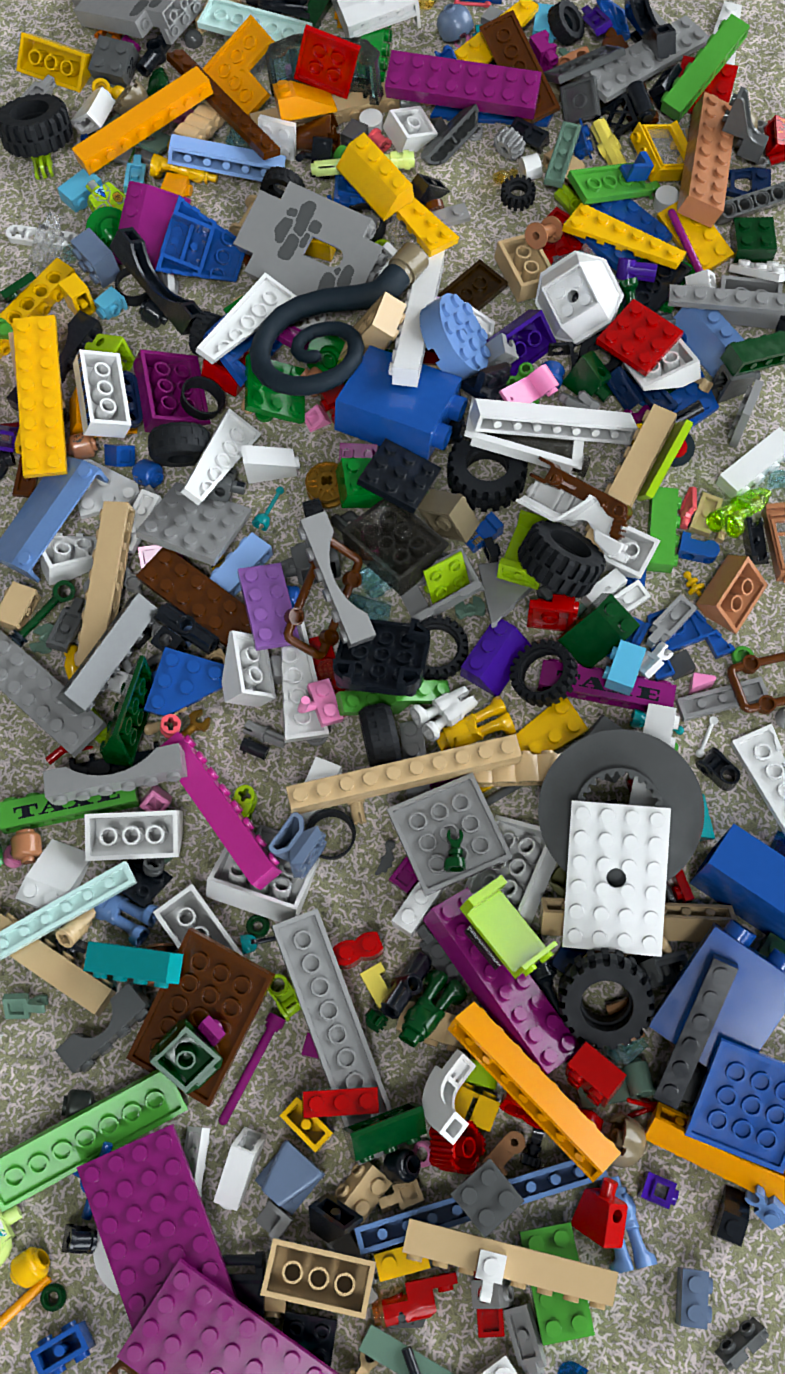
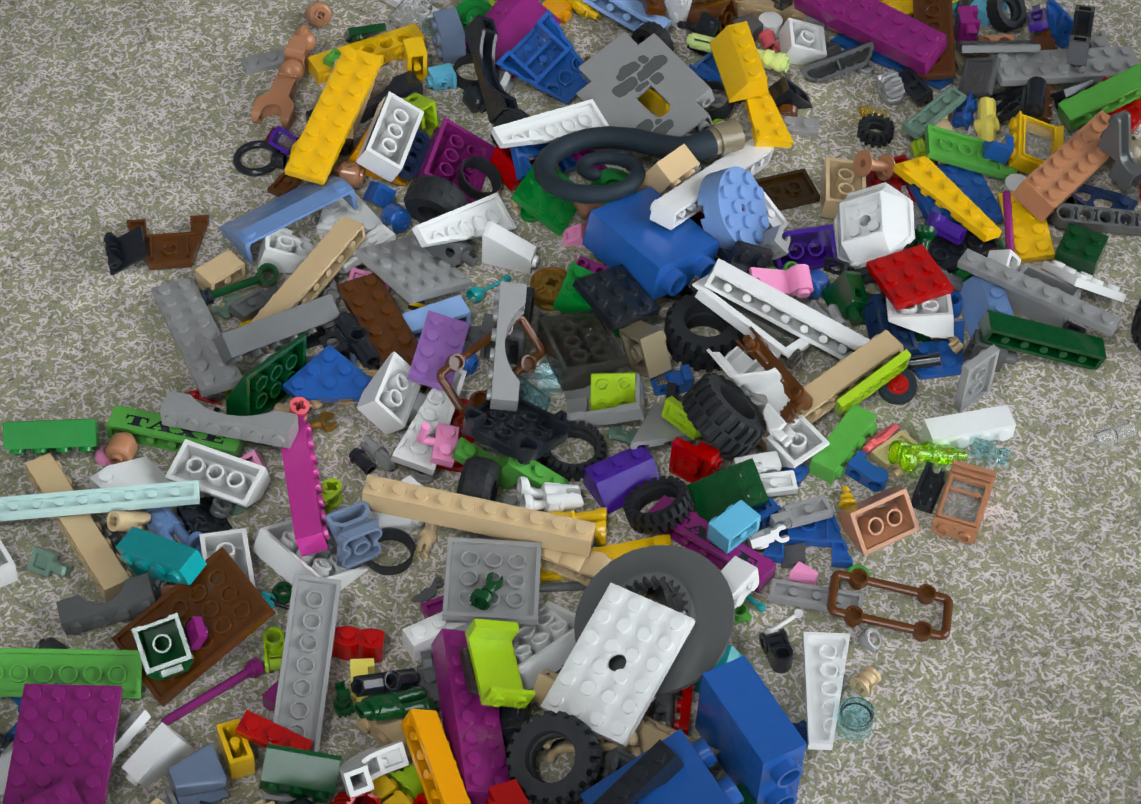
camera: 20 degrees right, 20 degrees down
(530, 166) = (899, 113): white piece -> none

